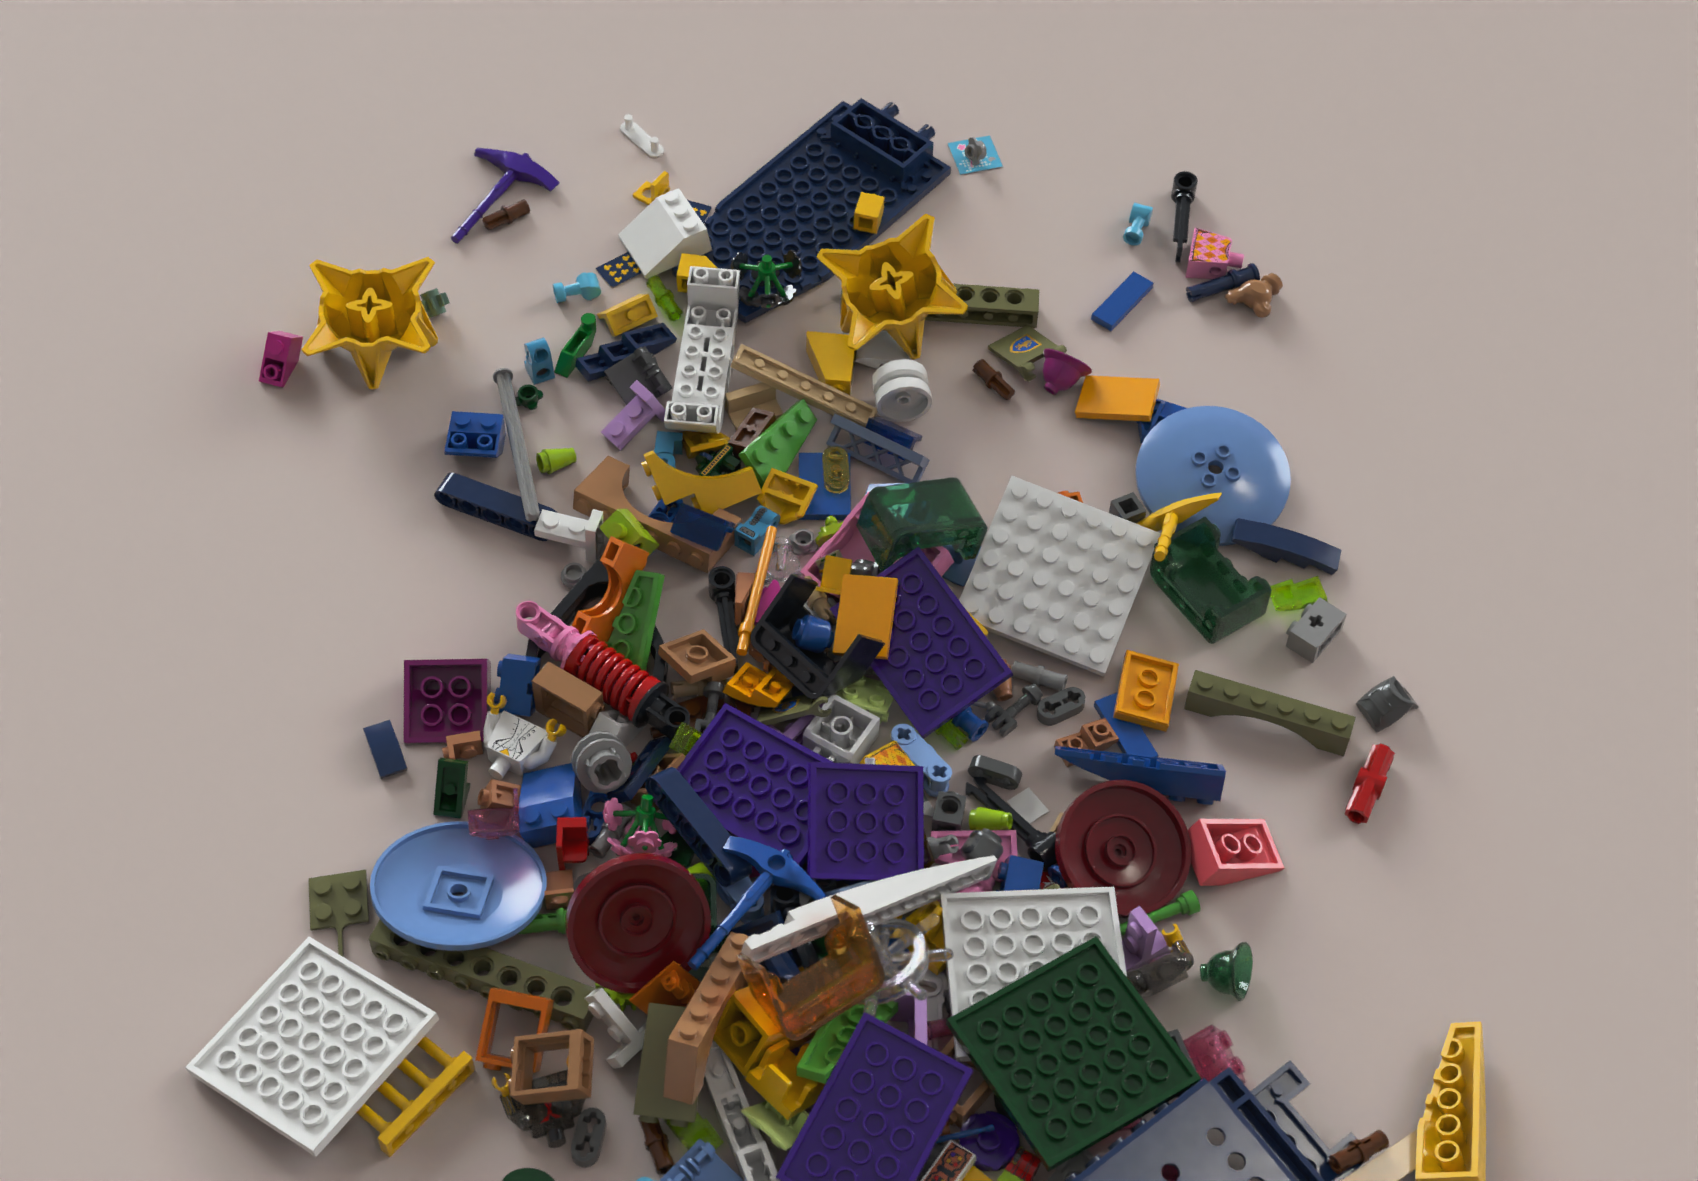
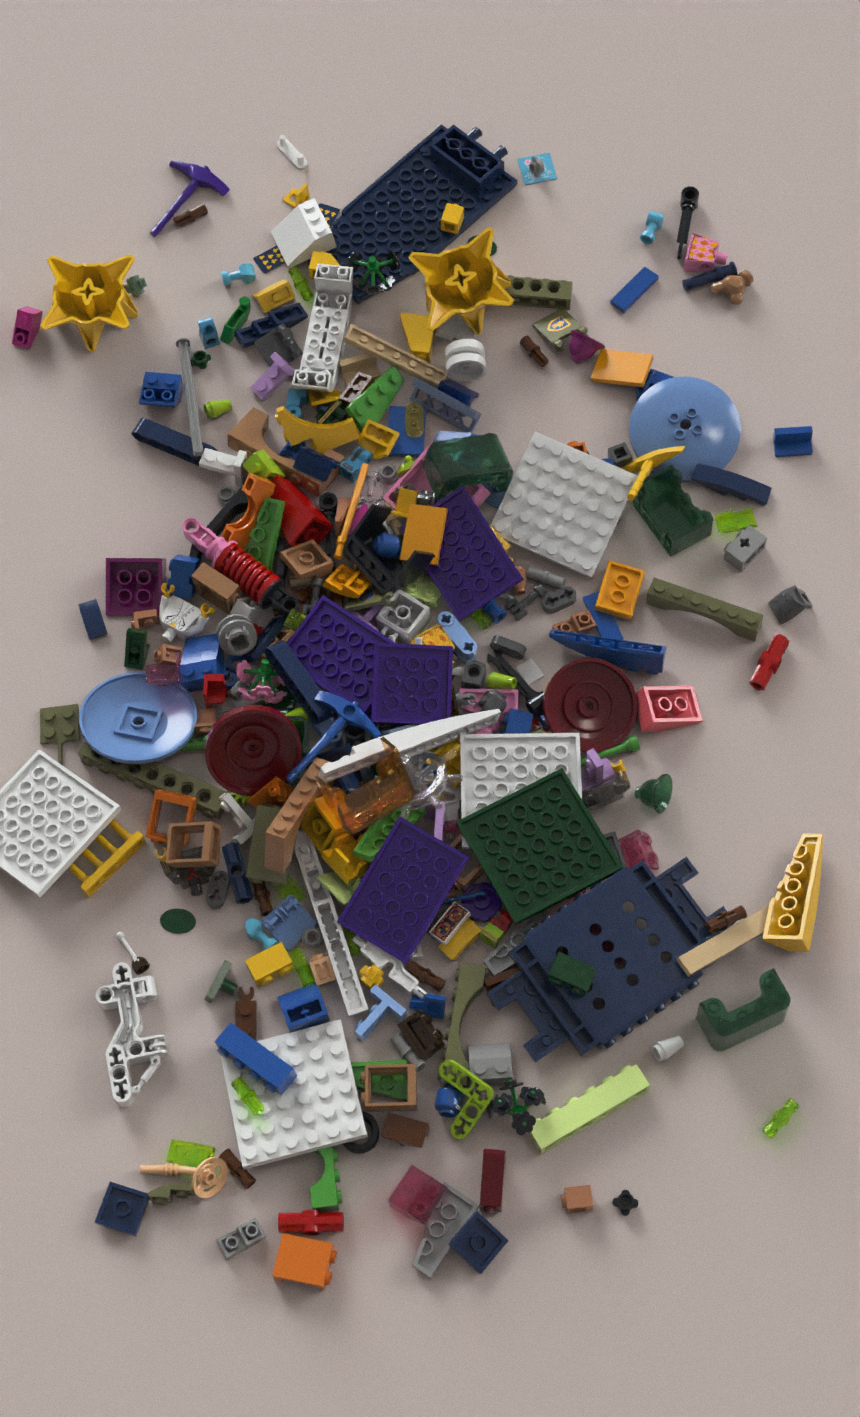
camera: 10 degrees right, 10 degrees up
(623, 1124) = (239, 883): none -> dark blue piece
(684, 600) = (301, 517): none -> red slope
(1362, 489) = (793, 441): none -> blue panel

